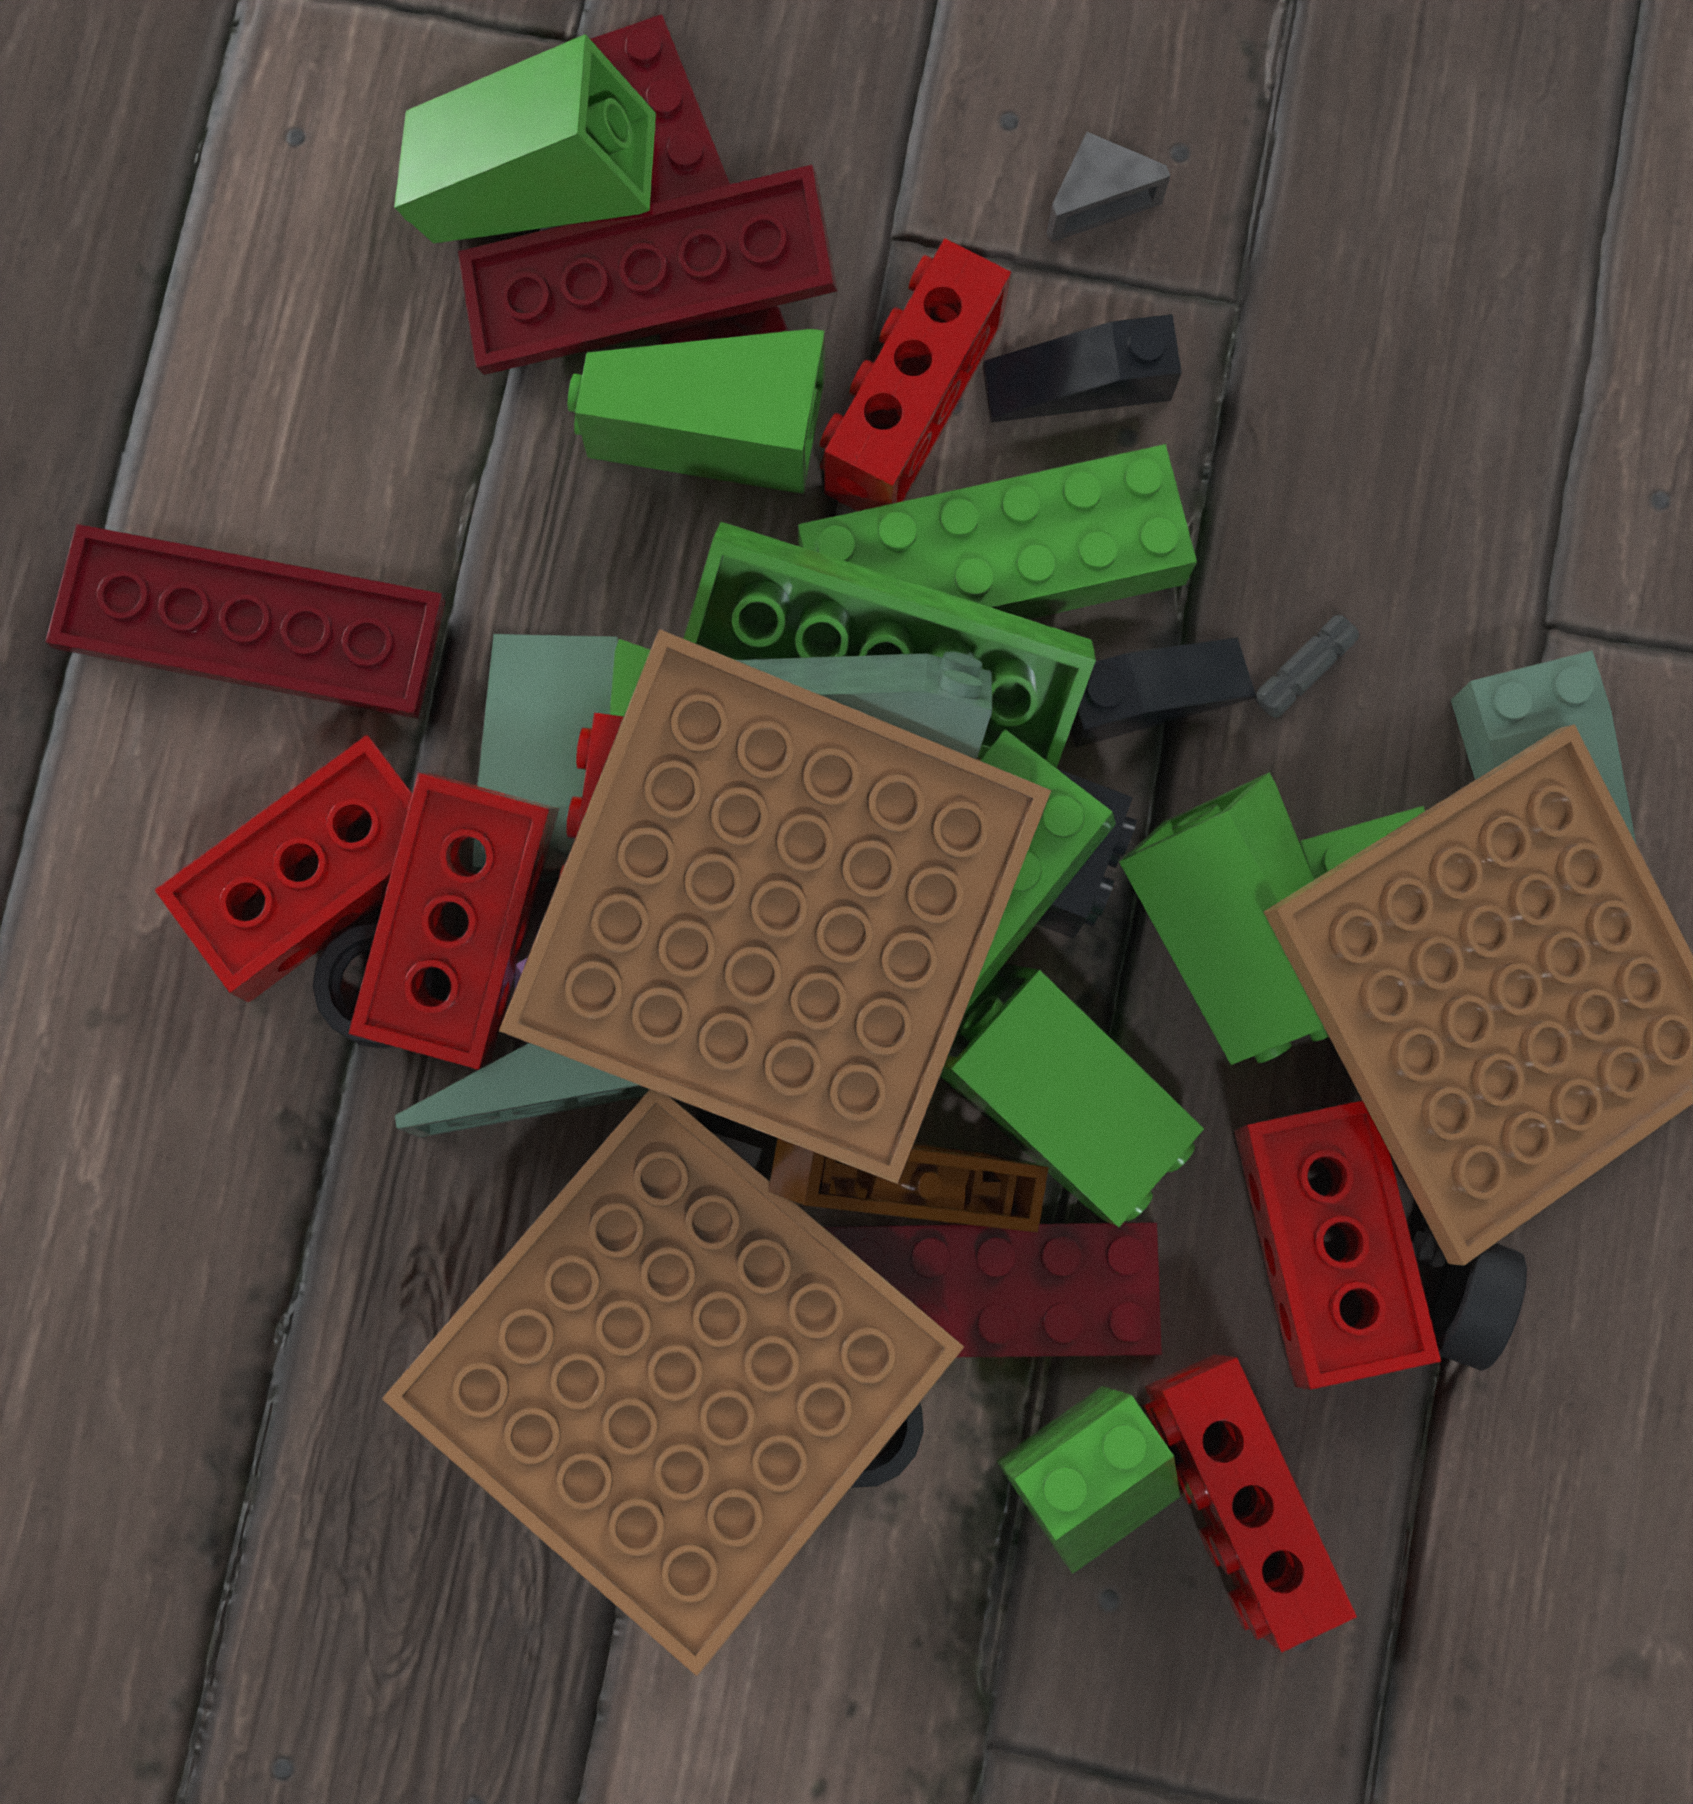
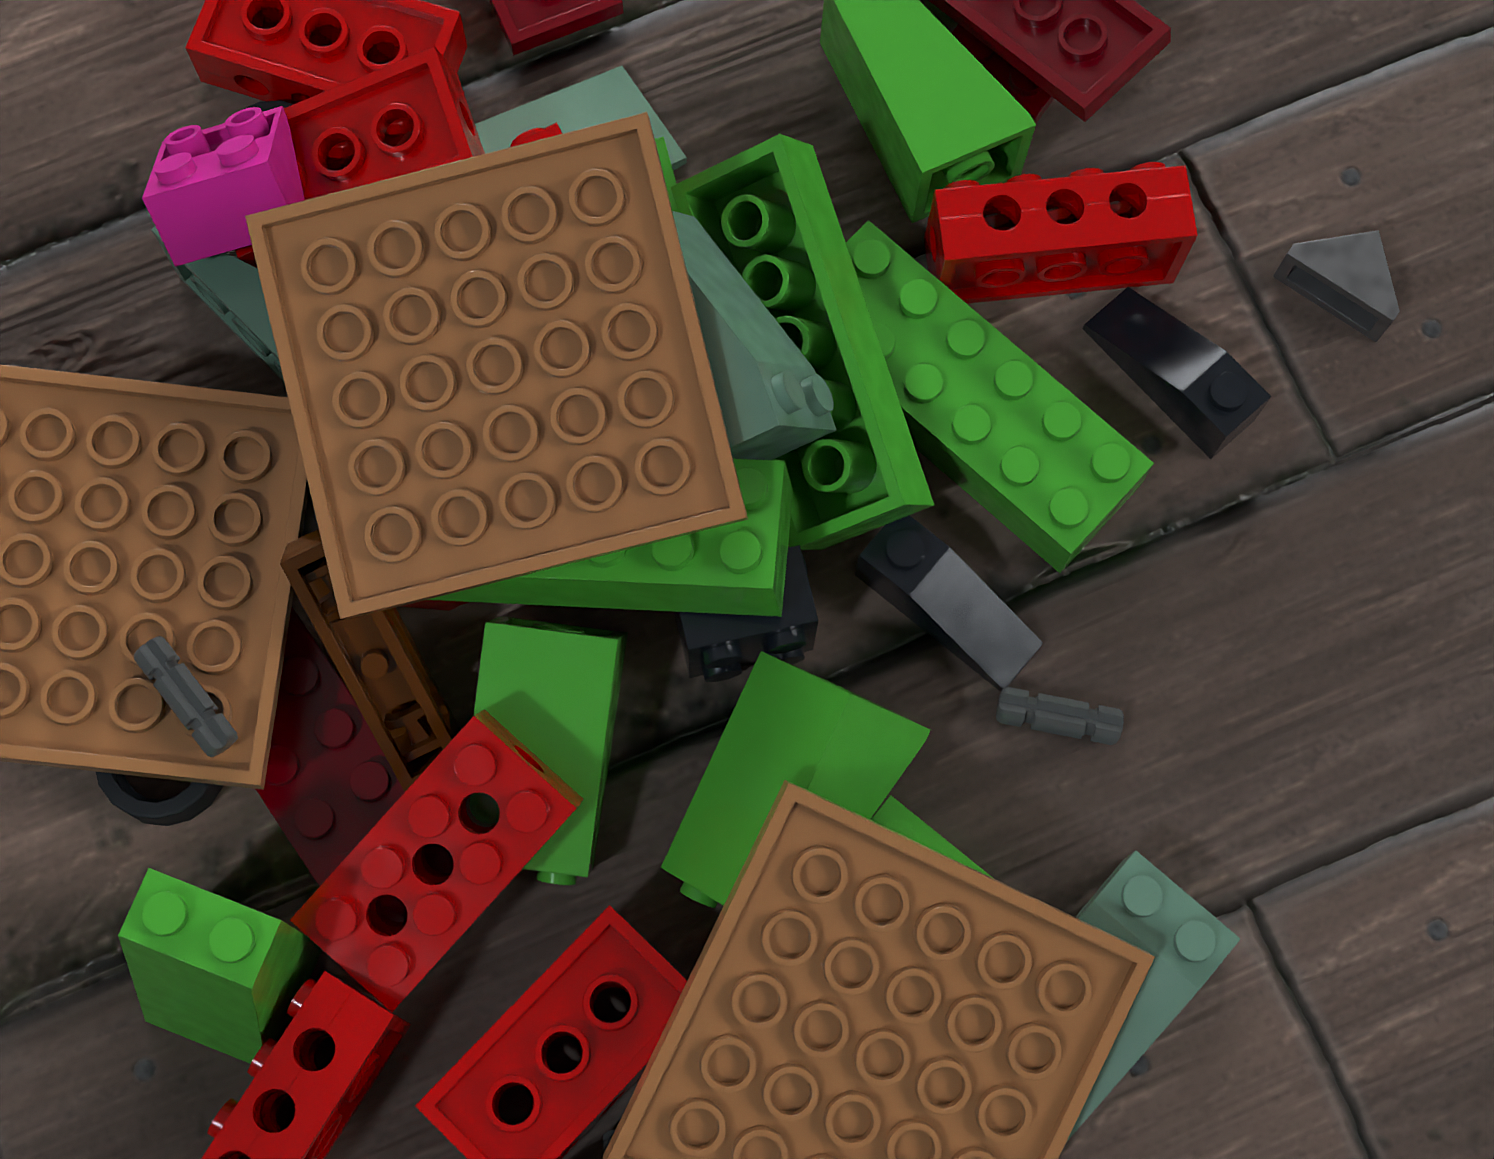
camera: 55 degrees right, 5 degrees down
(416, 1035) = (218, 176): none -> dark pink slope
(851, 1361) = (185, 696): none -> dark grey axle
(1162, 1251) = (391, 860): none -> red brick

